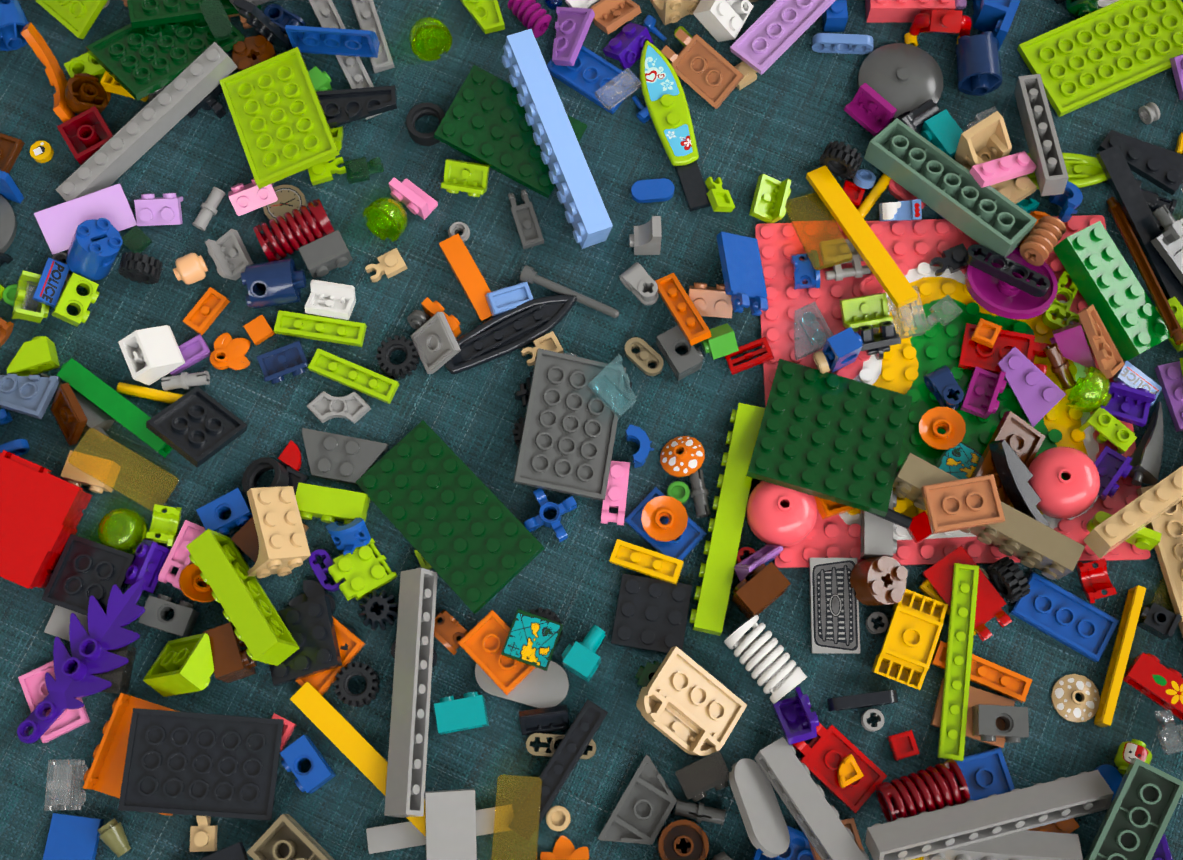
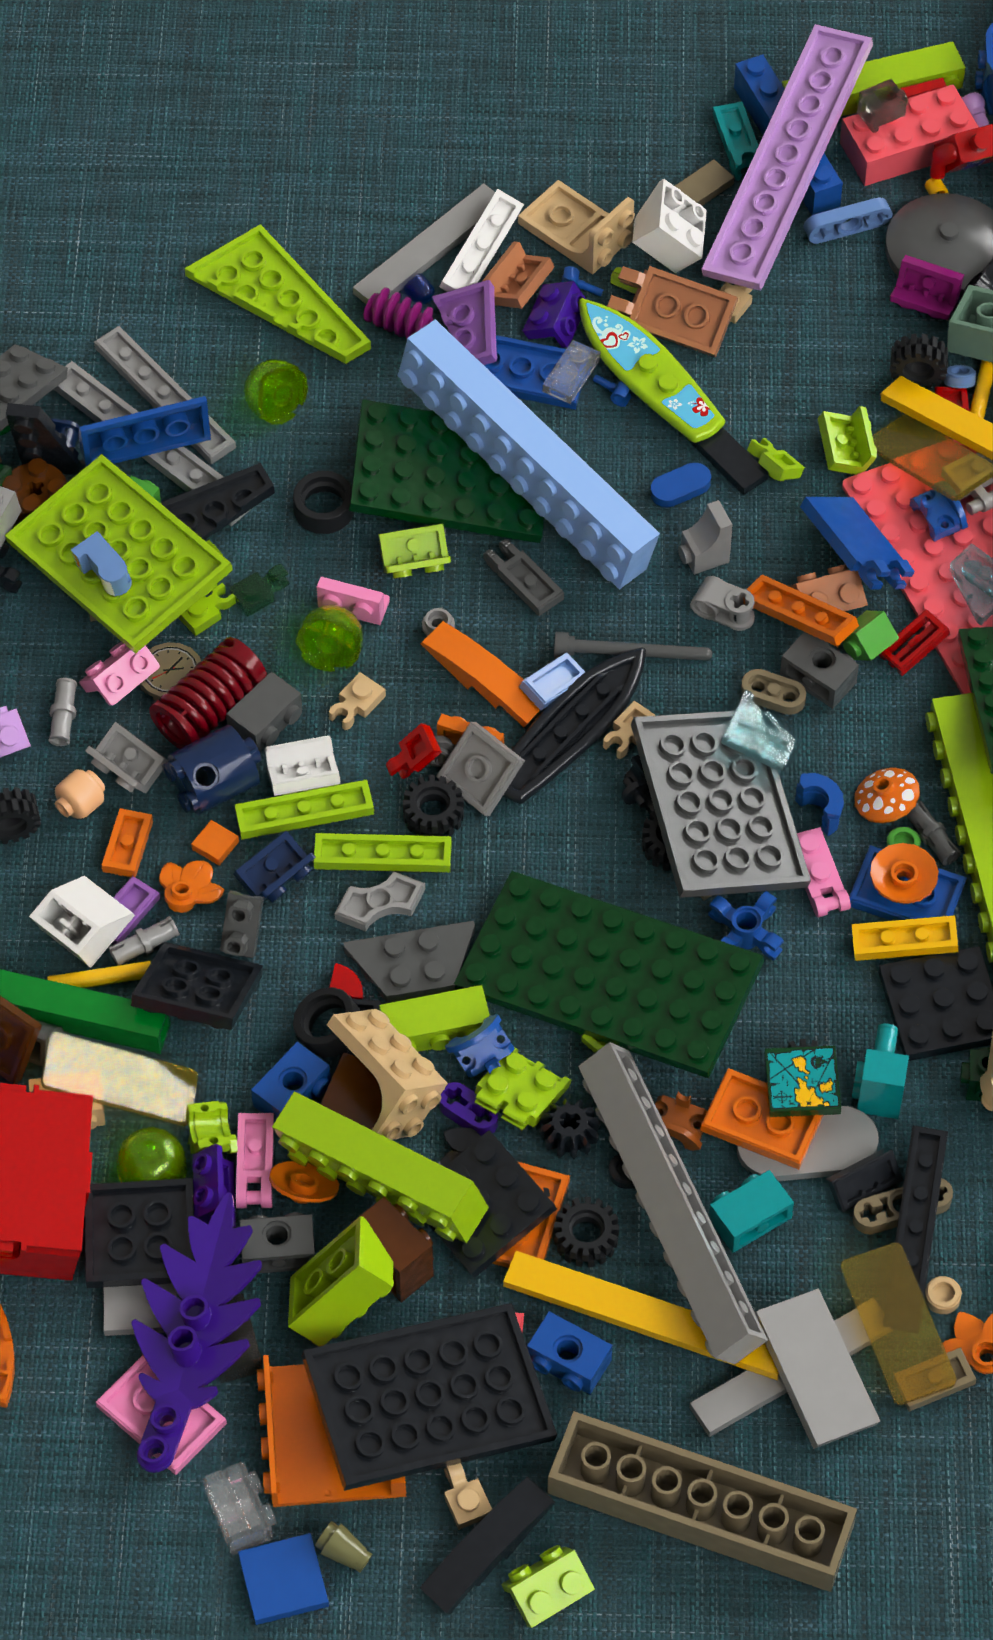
camera: 25 degrees left, 15 degrees down
(243, 395) = (241, 924): none -> dark grey hips
(260, 117) = (99, 556): none -> medium blue leg
(401, 316) = (417, 751): none -> red plate

